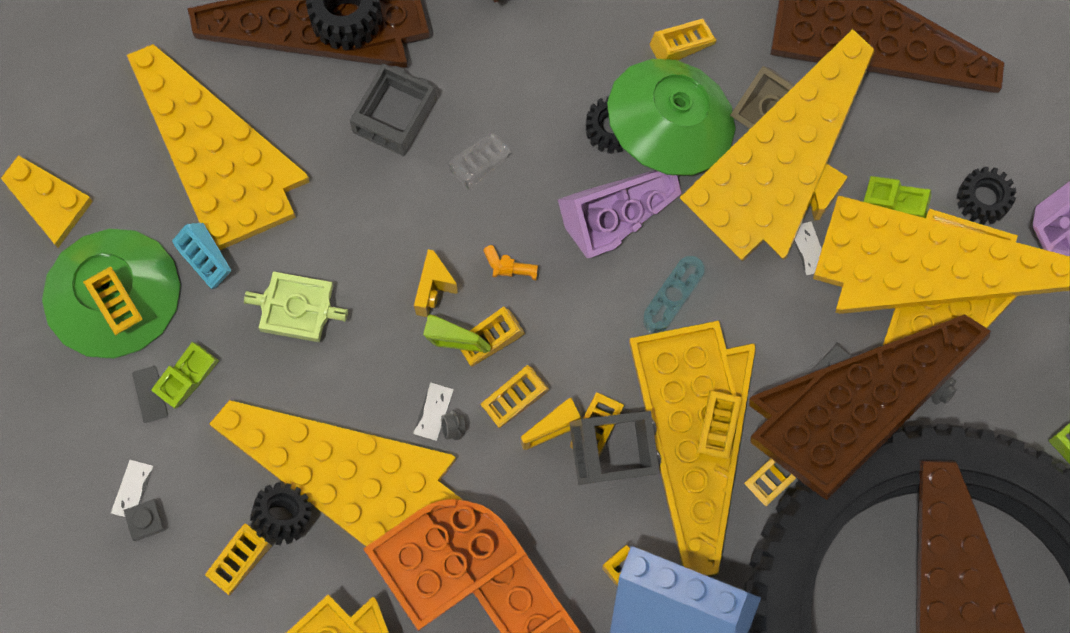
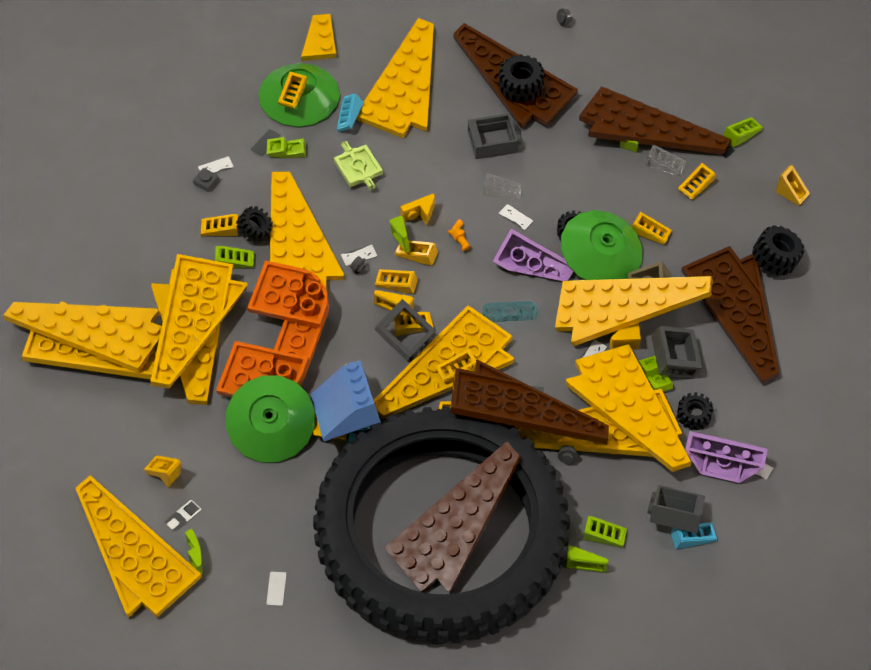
camera: 50 degrees right, 15 degrees down
(316, 585) = (223, 251): none -> lime slope
(533, 177) = (515, 217): none -> white sticker
(884, 165) = (674, 367): none -> dark grey window

